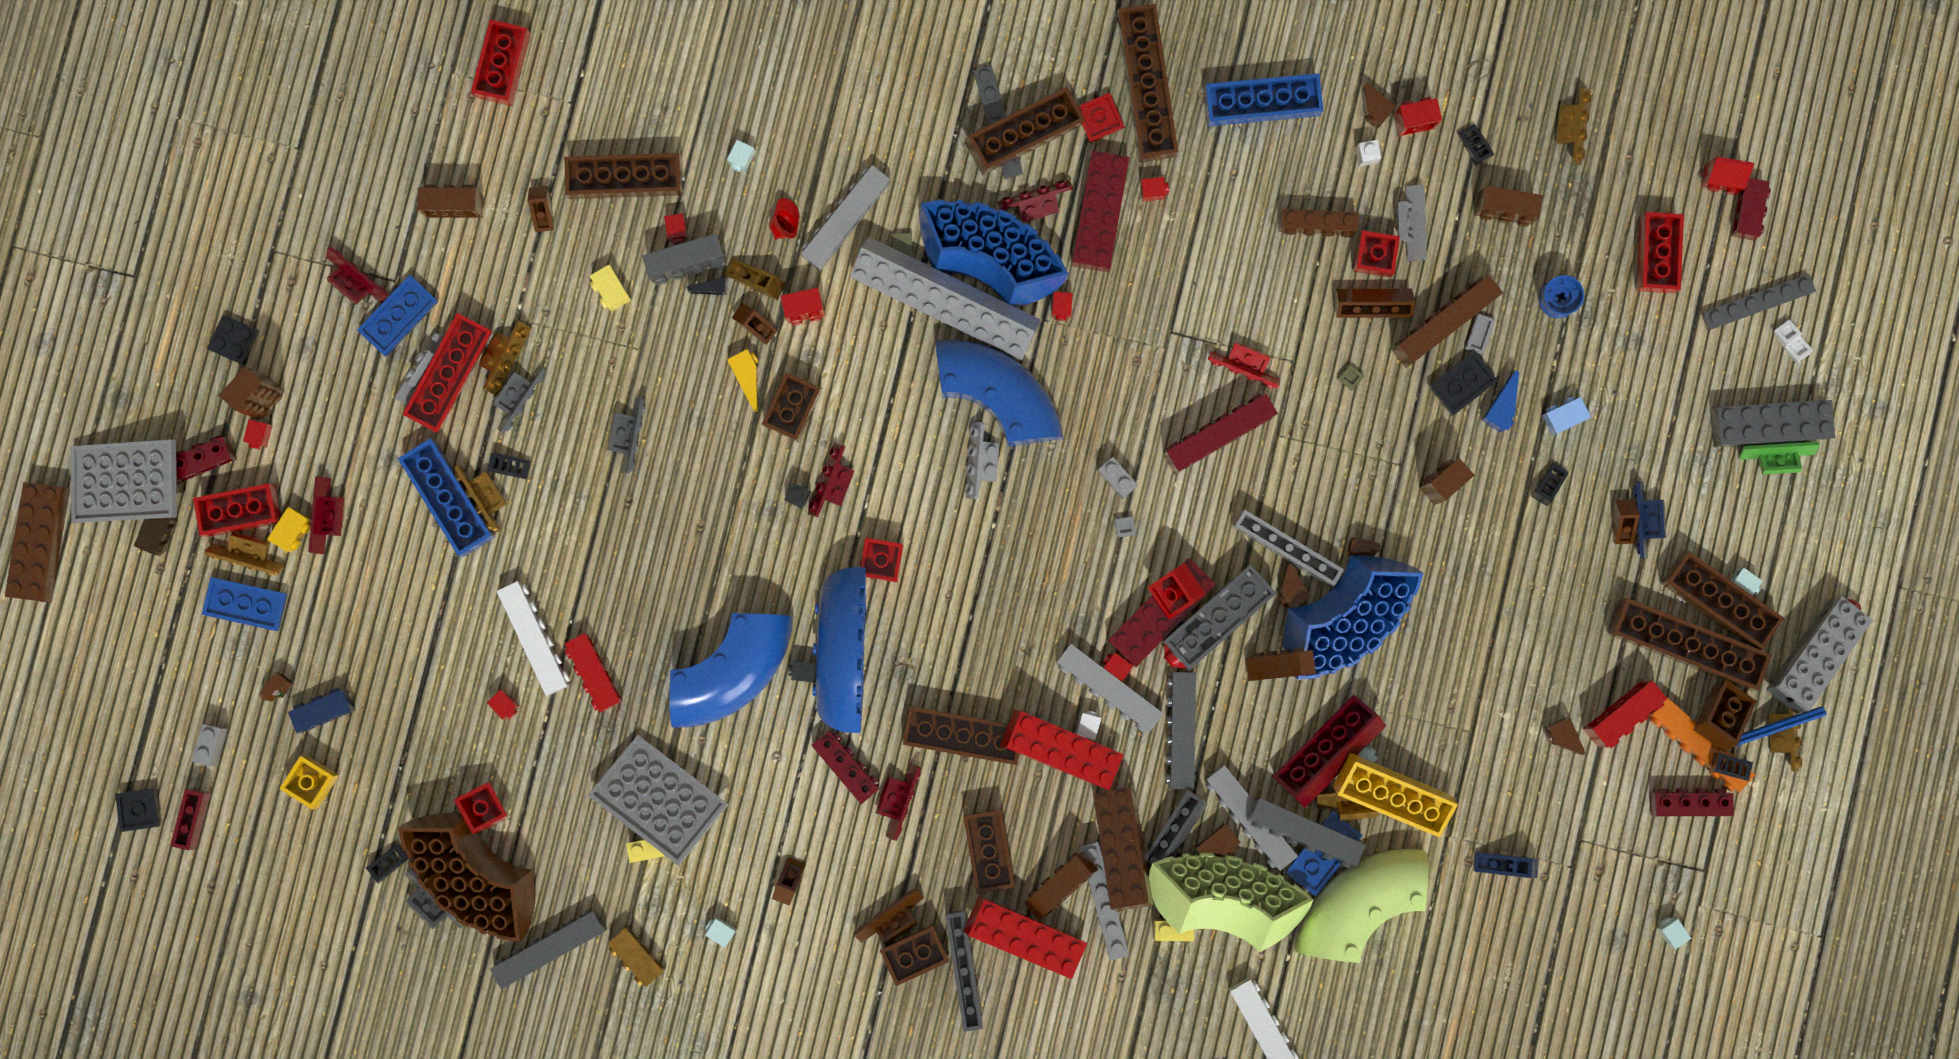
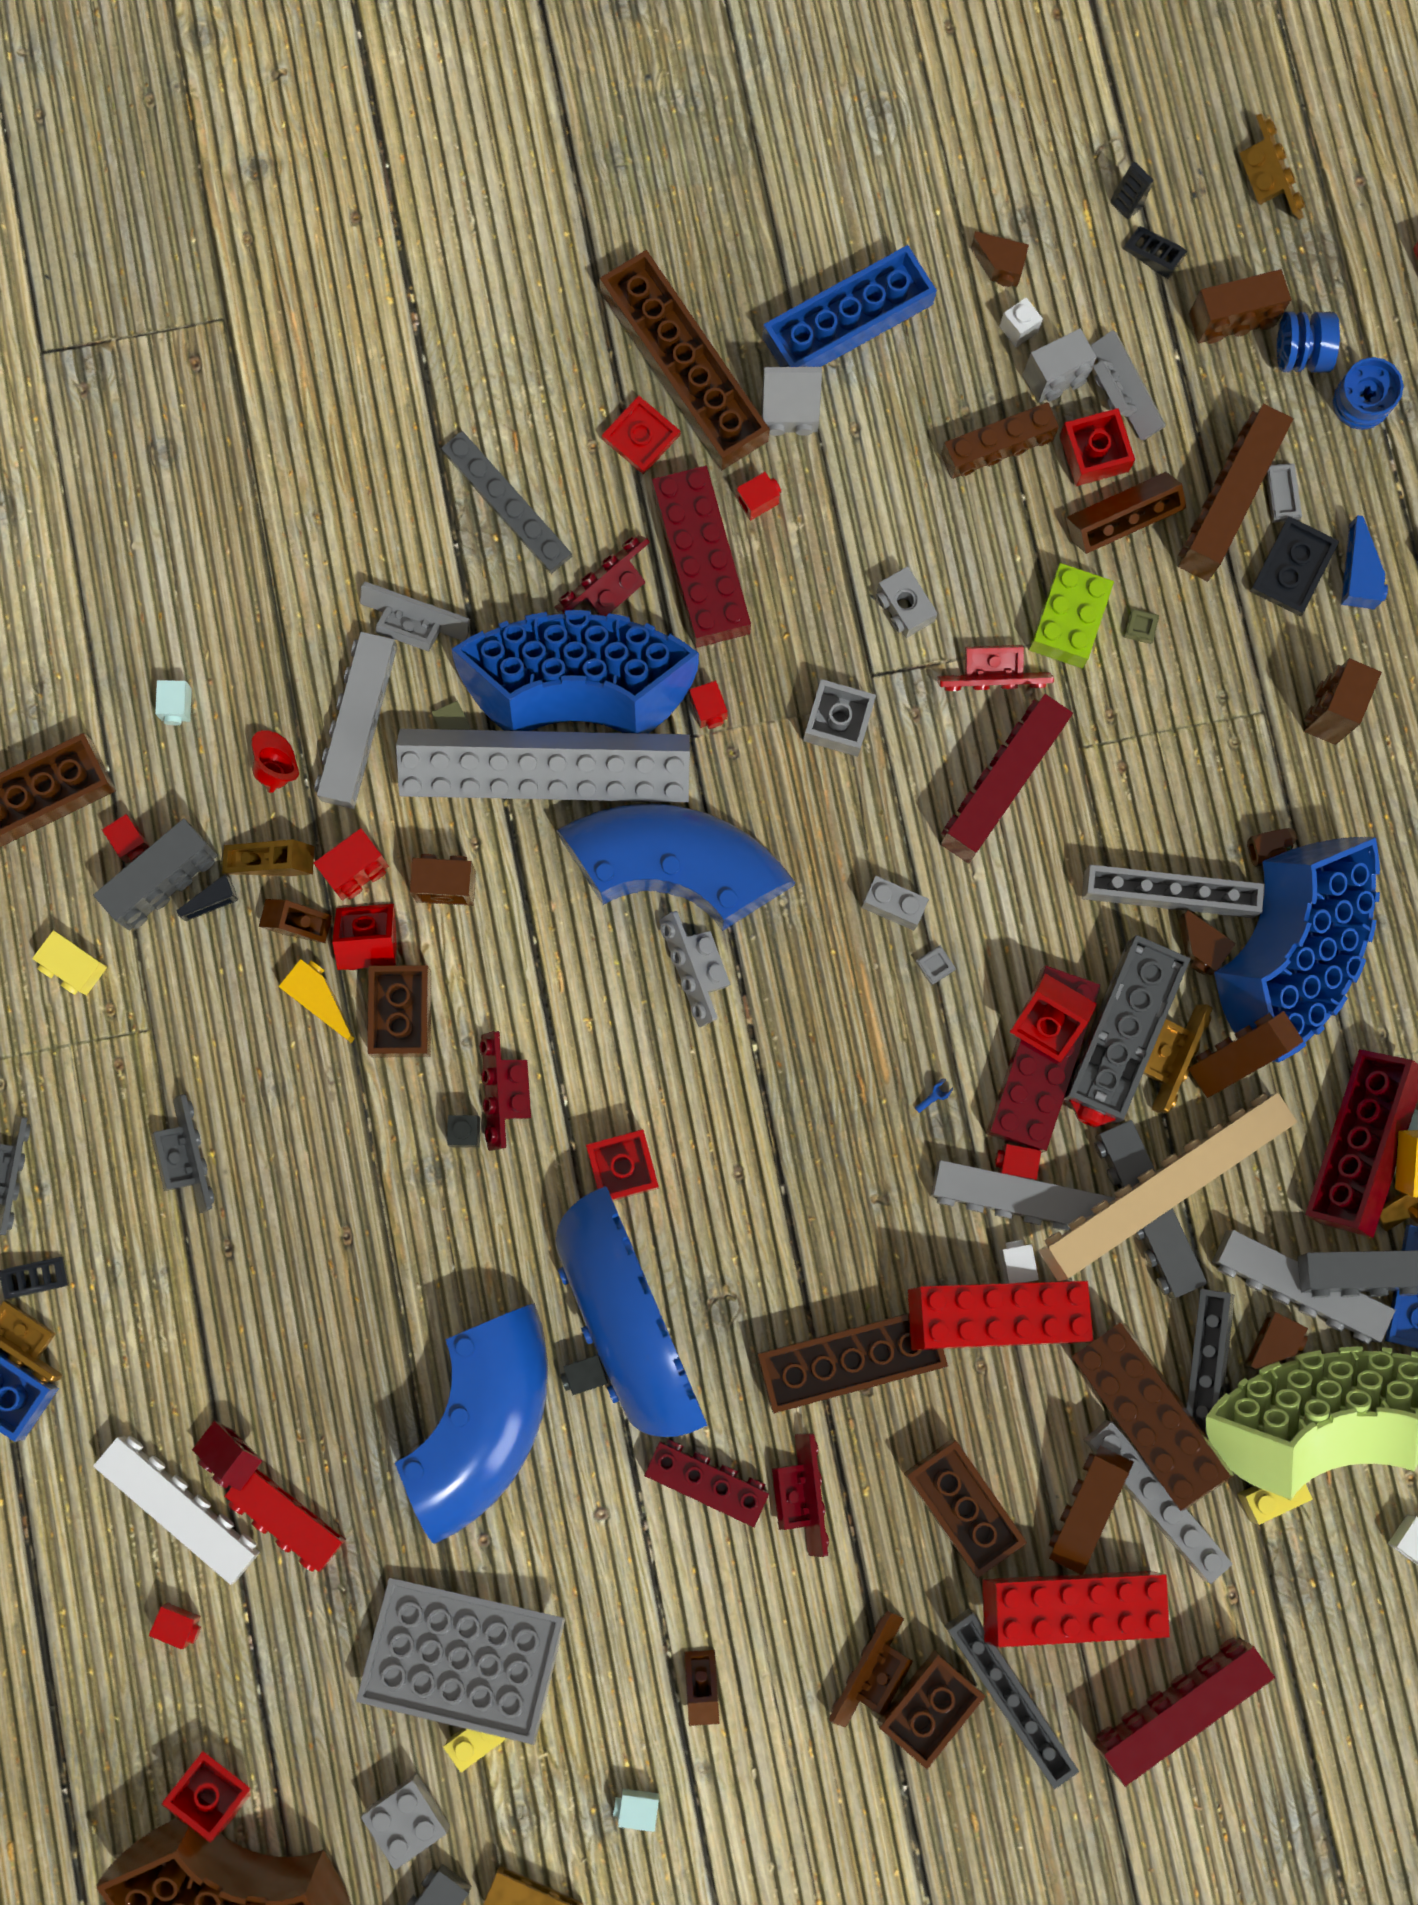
camera: 25 degrees left, 5 degrees down
(575, 621) = (226, 1456): none -> dark red brick
(586, 875) = (405, 1821): none -> light grey brick
(791, 352) = (365, 937): none -> red slope
(852, 340) = (443, 880): none -> reddish brown brick
(906, 170) = (411, 619): none -> light grey bracket
(1024, 130) = (547, 493): reddish brown brick -> none
(1060, 1023) = (1182, 1710): none -> dark red brick
(1088, 603) = (935, 1095): none -> blue hand
(1137, 350) = (839, 717): none -> light grey brick
(1197, 721) = (1167, 1186): none -> tan brick
(1199, 140) = (791, 399): none -> light grey slope
(1215, 286) = (905, 586): none -> light grey brick
(1239, 645) = (1173, 1055): none -> pearl gold bracket
(1309, 351) = (1071, 615): none -> lime brick
(1377, 193) = (1059, 366): none -> light grey brick
(1417, 116) = (1063, 245): red brick -> none
(1477, 101) = (1132, 191): none -> black slope
(1539, 247) = (1308, 341): none -> blue wheel

